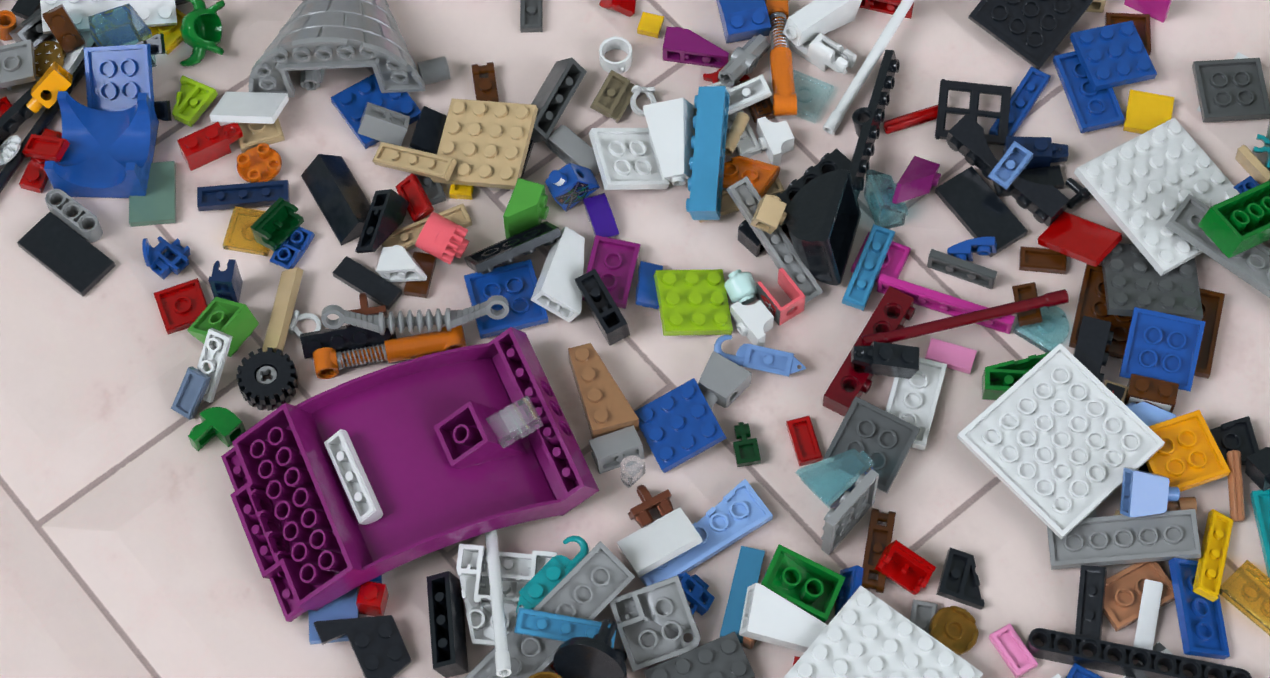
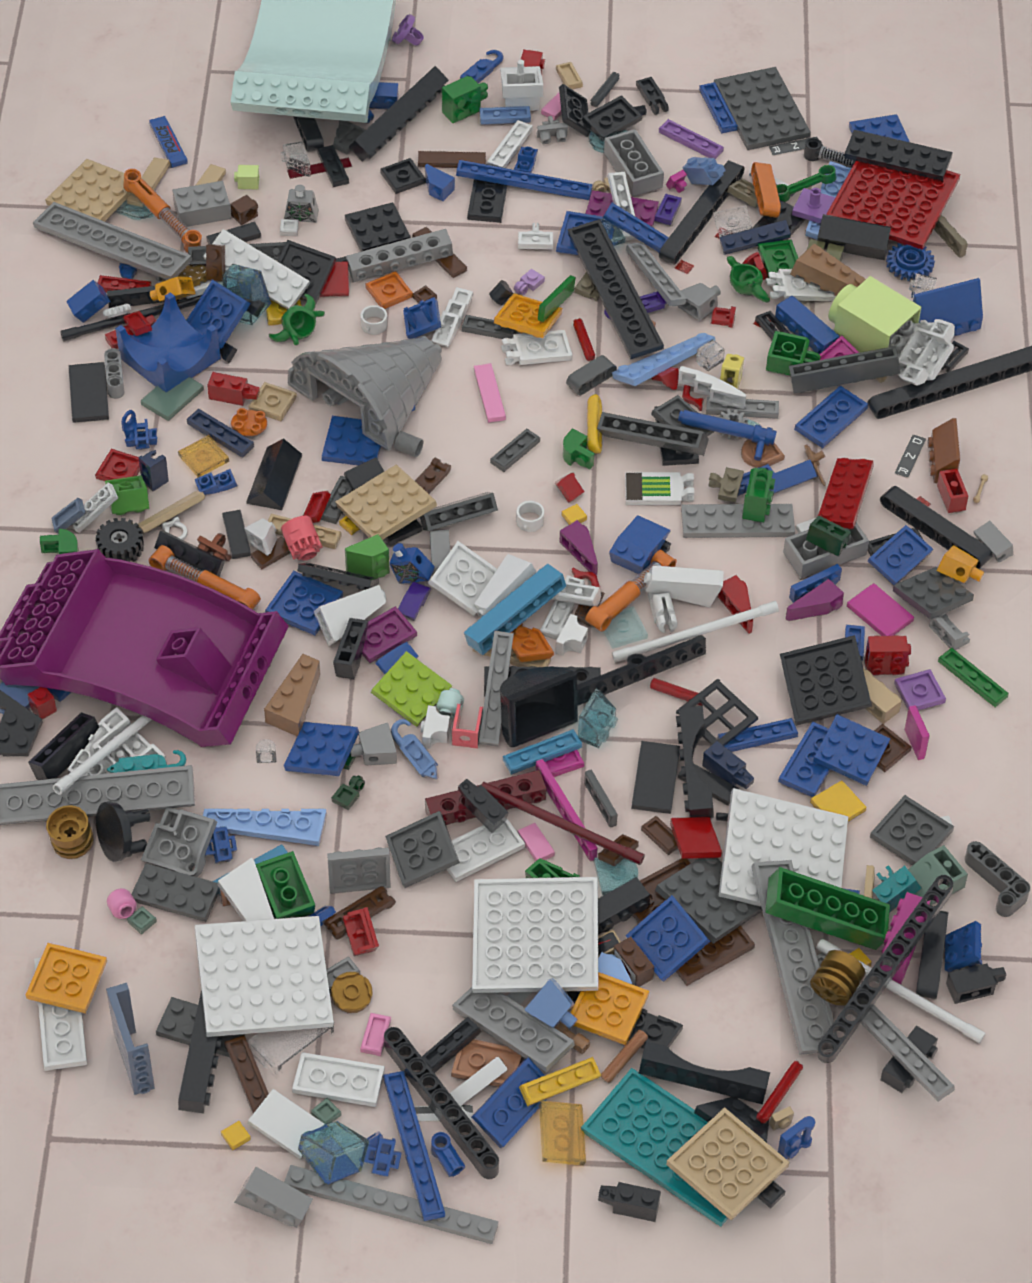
camera: 40 degrees right, 10 degrees down
(192, 101) = (250, 360): lime wing -> none
(249, 107) = (276, 385): white tile -> none
(276, 224) = (217, 460): dark green hinge -> none
(353, 478) = (95, 622): white brick -> none
(383, 124) = (342, 451): light grey hinge -> none
(383, 218) = (284, 502): black slope -> none
(414, 161) = (336, 484): tan tile -> none
(451, 318) = (233, 570): light grey piece -> none
(514, 421) = (215, 660): clear brick -> none
(555, 626) = (118, 793): dark azure tile -> none
(613, 96) = (502, 539): dark tan plate -> none
(613, 447) = (273, 730): light grey hinge -> none
(637, 90) = (526, 552): white piece -> none
(641, 511) = (262, 781): copper hips -> none
(659, 542) = (234, 802): white tile -> none
(735, 132) = (551, 612): tan piece -> none
(743, 60) = (603, 575): light grey piece -> none
(769, 214) = (503, 665): tan brick -> none
(804, 441) = (389, 818): red tile -> none
(835, 475) = (368, 836): clear light blue slope -> none
(916, 180) = (631, 723): magenta slope -> none
(960, 580) = (389, 968): black wing -> none
(982, 246) = (617, 789): blue slope -> none
(1010, 165) = (695, 757): medium blue slope -> none

